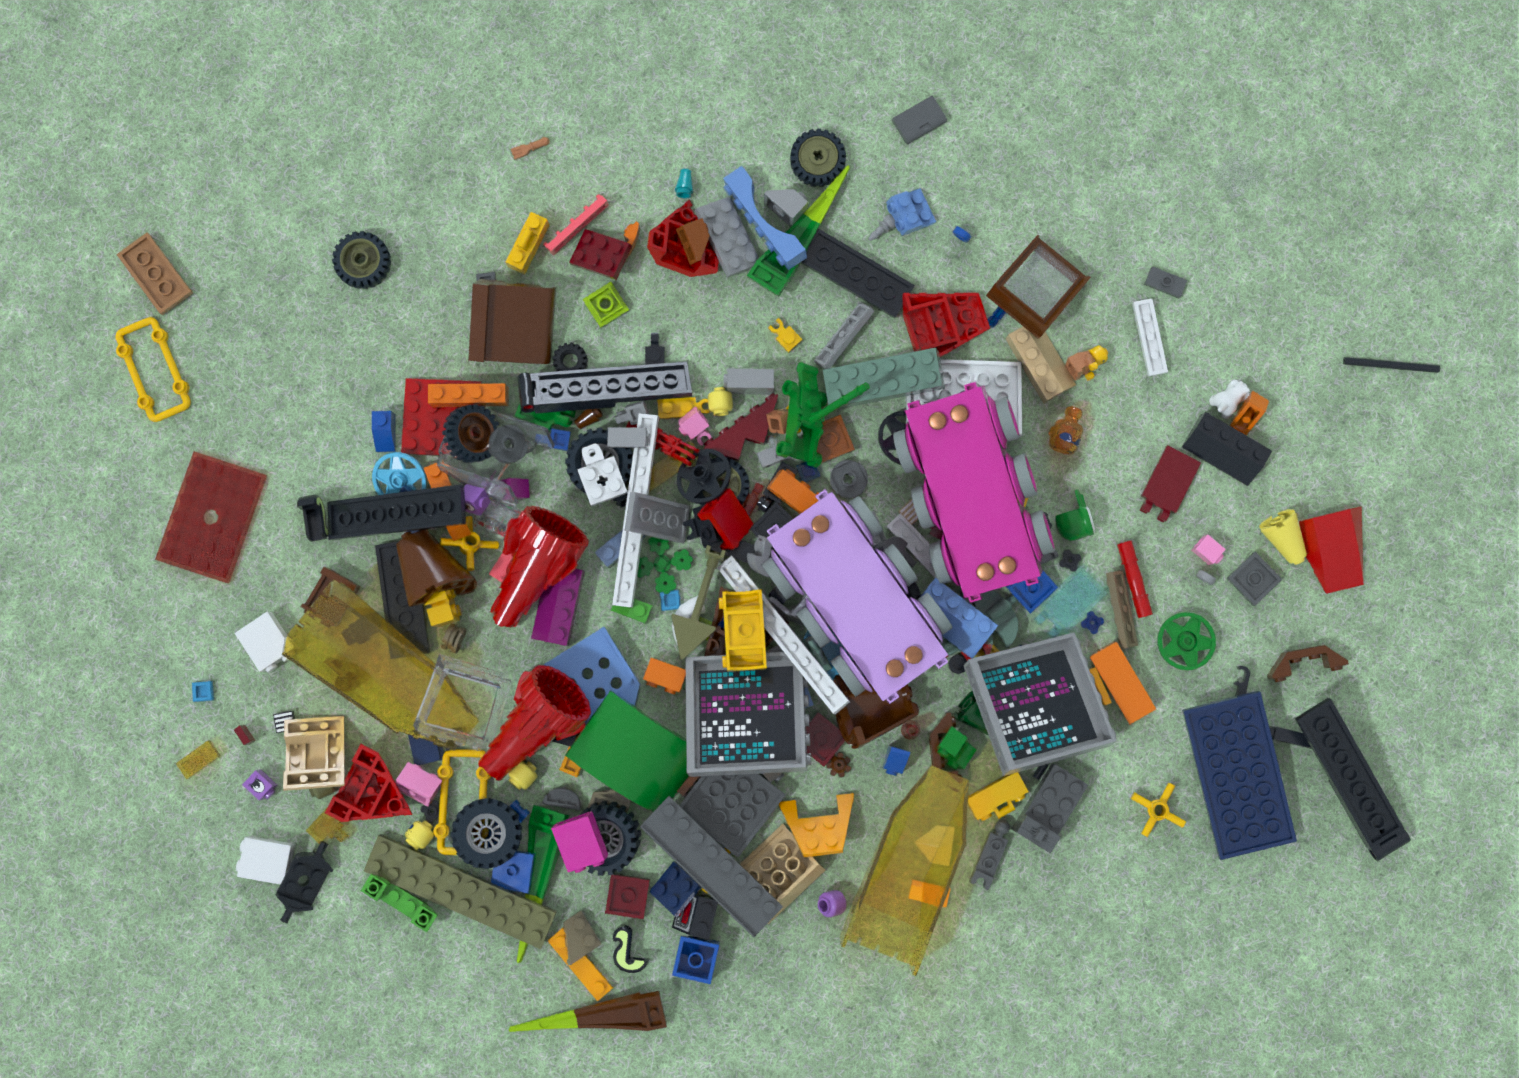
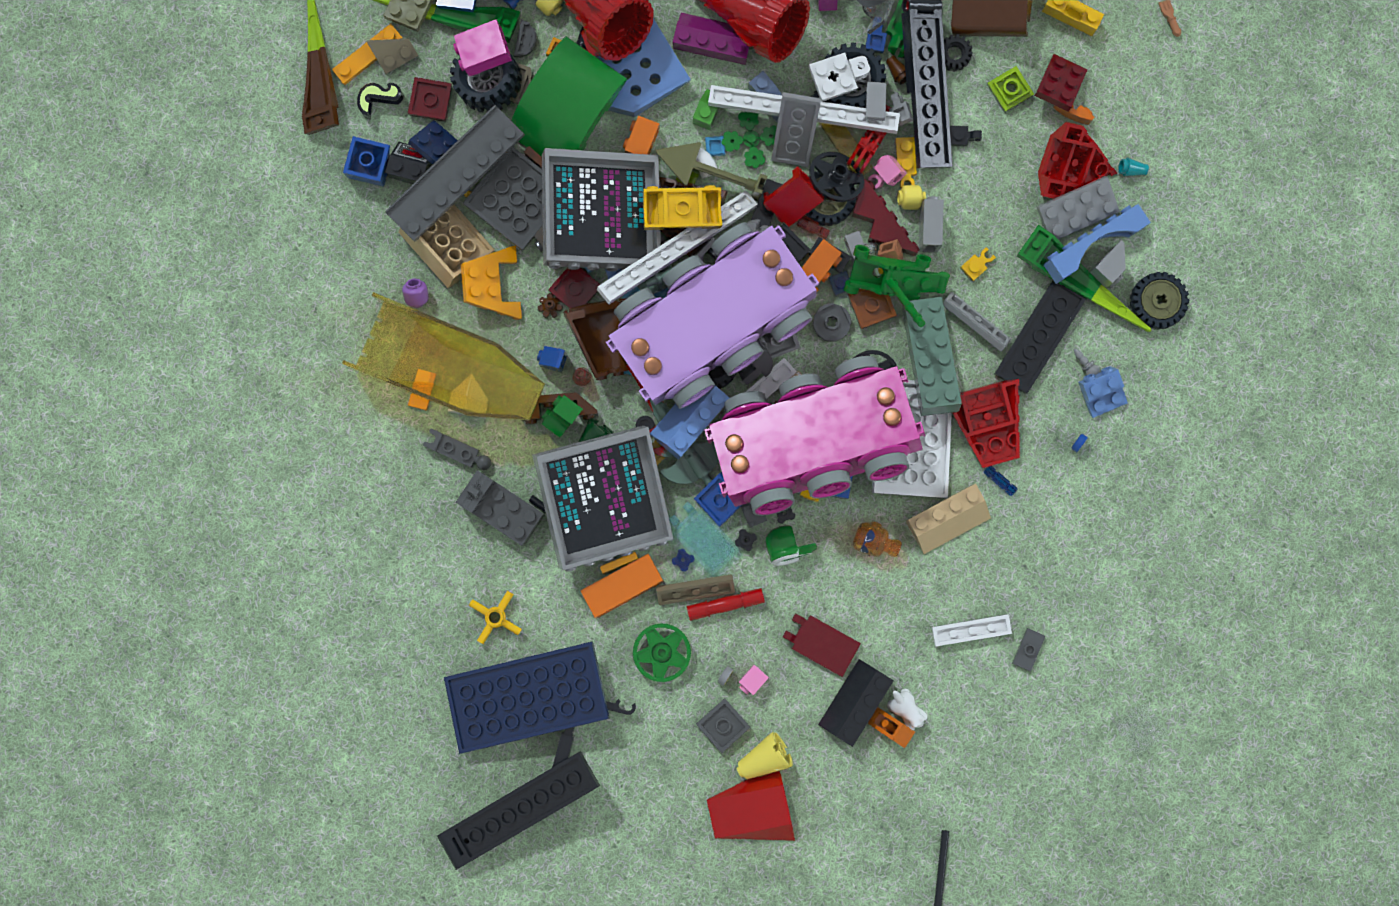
camera: 90 degrees right, 0 degrees up
(576, 225) = (1091, 61): coral hinge -> none
(694, 239) = (1076, 172): dark orange slope -> none
(702, 529) = (783, 174): black plate -> none
(764, 503) = (809, 238): black plate -> none
(919, 119) = (1198, 404): dark grey piece -> none
(1003, 790) = (512, 450): yellow piece -> none
(1037, 287) = (1024, 514): piece -> none
(1084, 361) = (946, 562): piece -> none
(1282, 669) = (639, 799): reddish brown slope -> none

